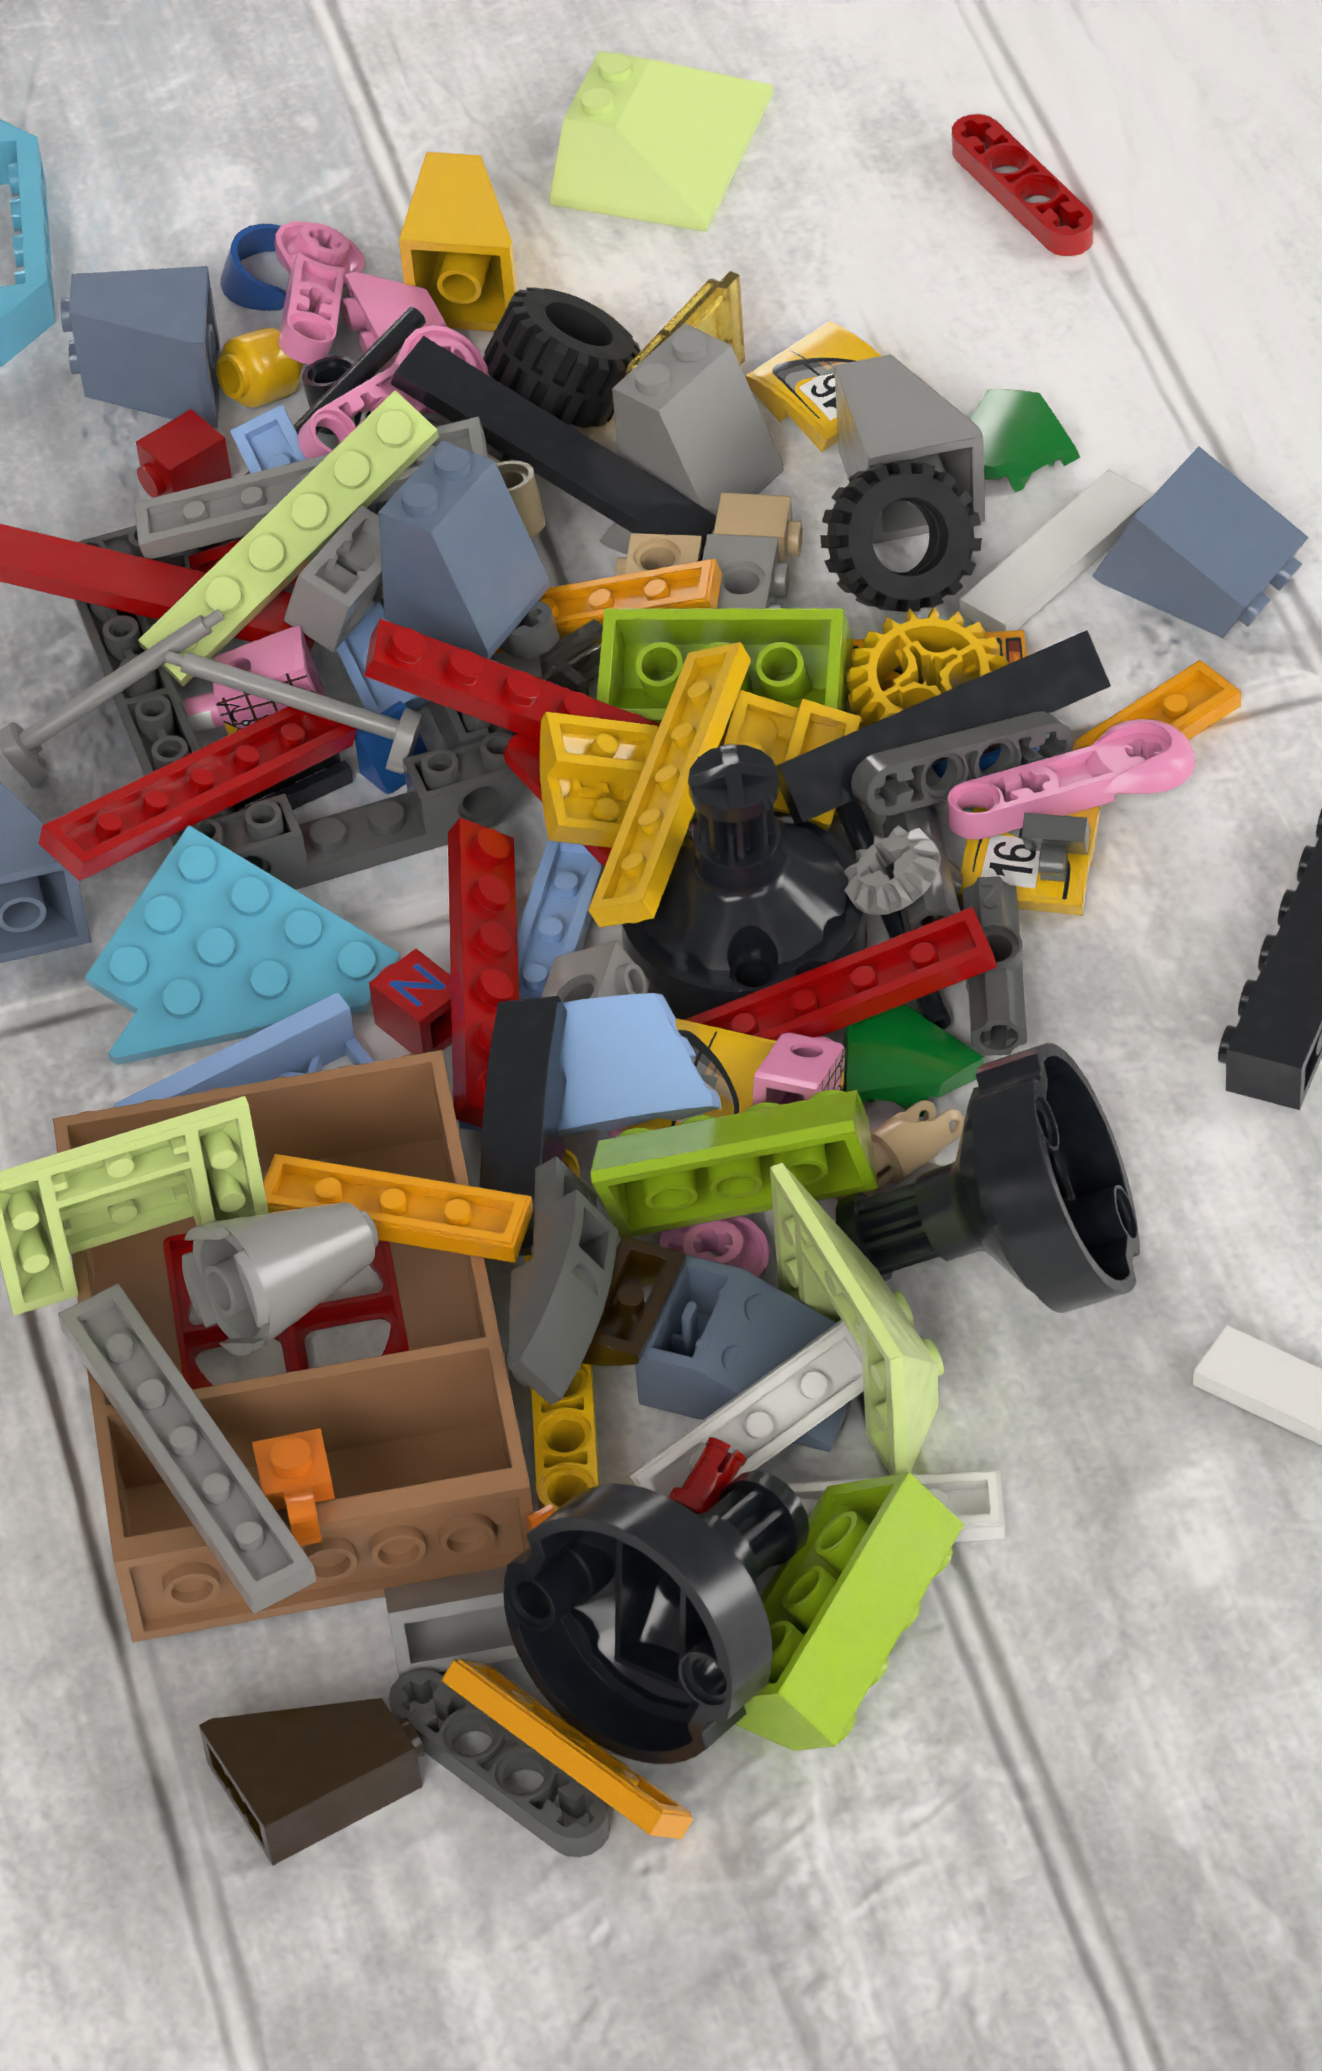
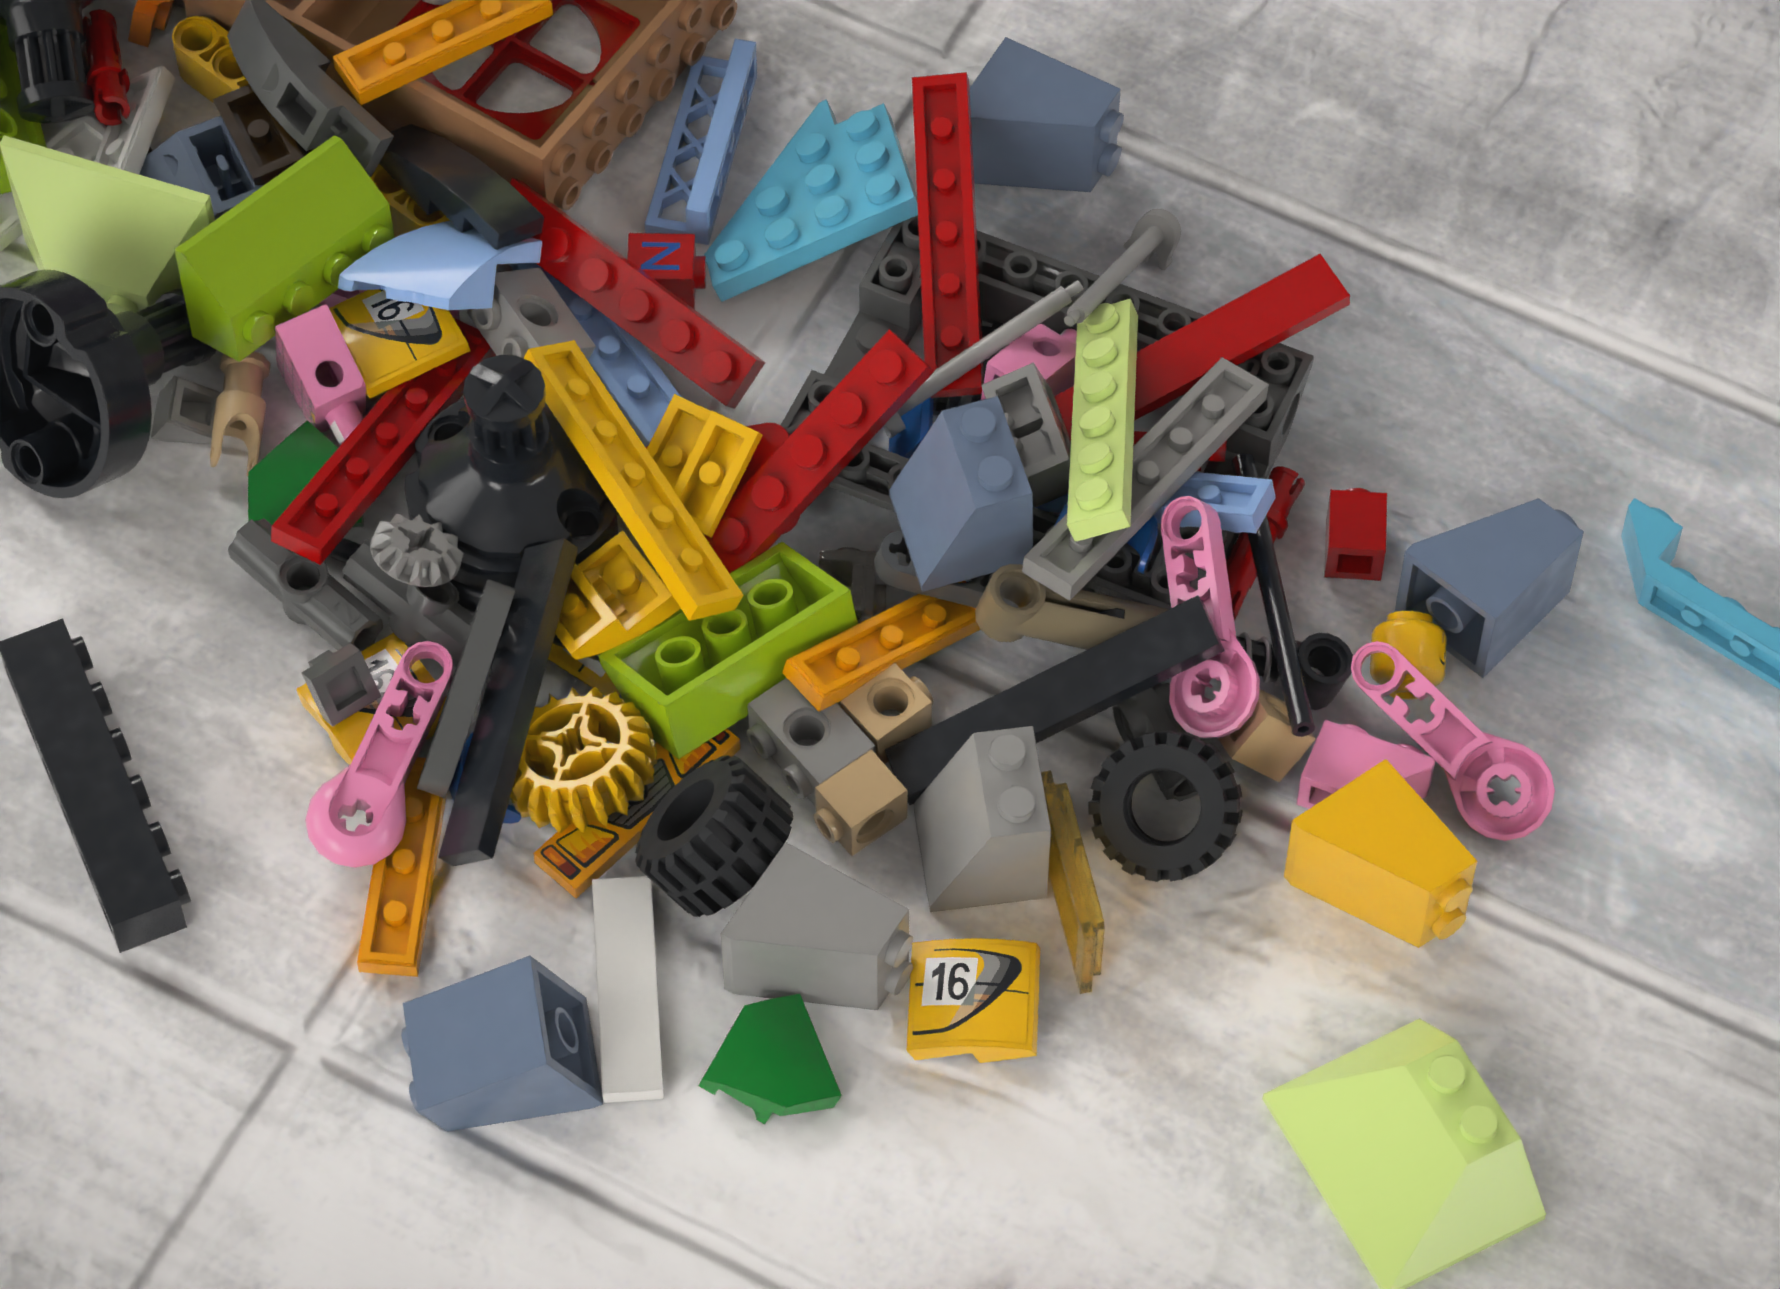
camera: 130 degrees right, 10 degrees up
(238, 283) = (1553, 728): blue helmet -> none

